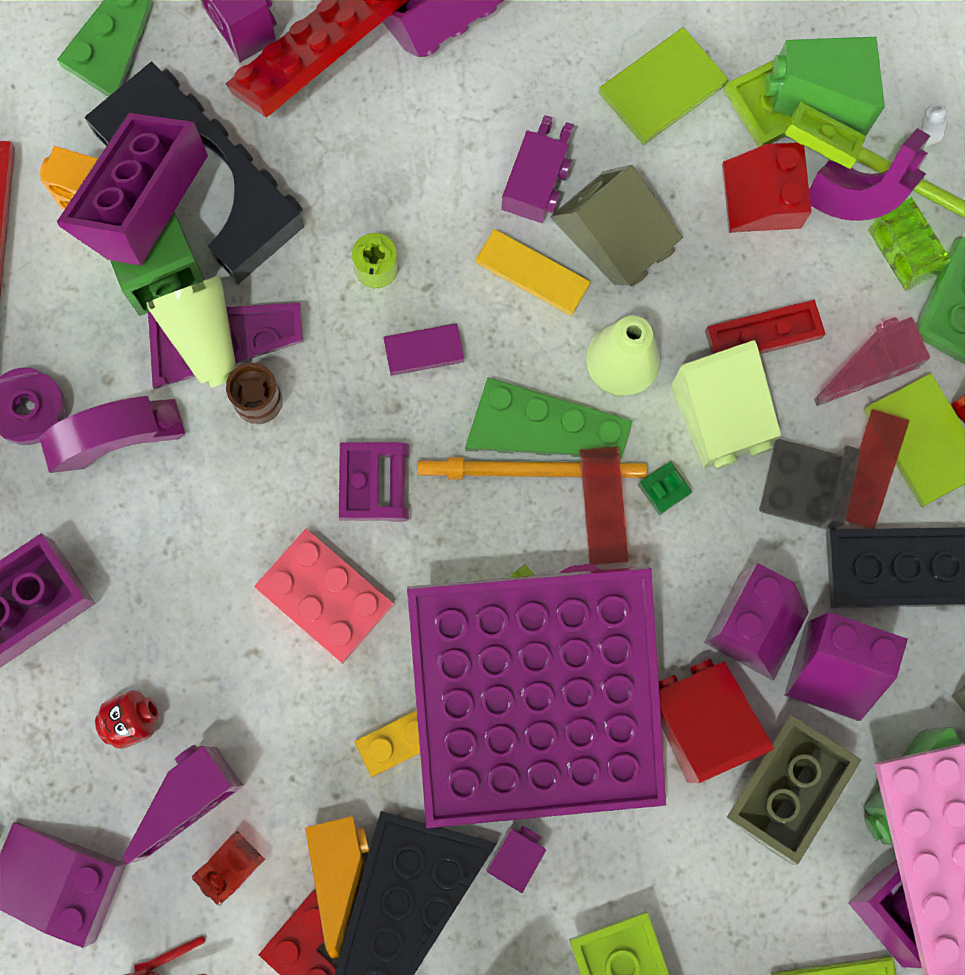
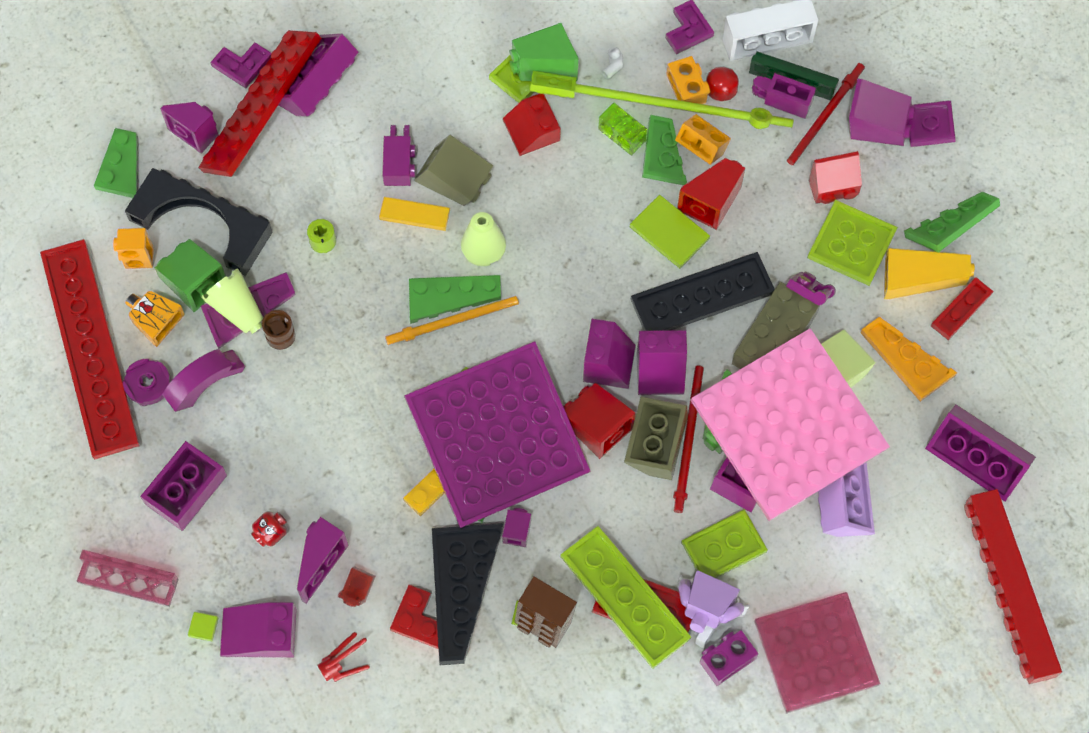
camera: 15 degrees left, 10 degrees down
(72, 302) = (154, 315): none -> light orange torso
(135, 187) = (172, 236): magenta slope -> none
(324, 595) = (357, 427): coral plate -> none
(337, 873) = (418, 565): light orange slope -> none
(361, 481) = (356, 357): magenta plate -> none
(423, 349) = (366, 276): magenta tile -> none
(603, 505) = (498, 322): clear red tile -> none
(663, 86) = (453, 87): lime tile -> none
(665, 488) = (531, 305): green tile -> none
(727, 405) = (549, 247): yellowish green slope -> none
(769, 329) = (558, 203): red plate -> none
(797, 892) = (681, 495): none -> red bar
(809, 484) = (610, 276): clear smoke bracket -> none
(867, 196) = (584, 111): magenta arch -> none
(875, 467) = (644, 256): clear red tile -> none
(885, 355) = (629, 194): clear pink slope -> none

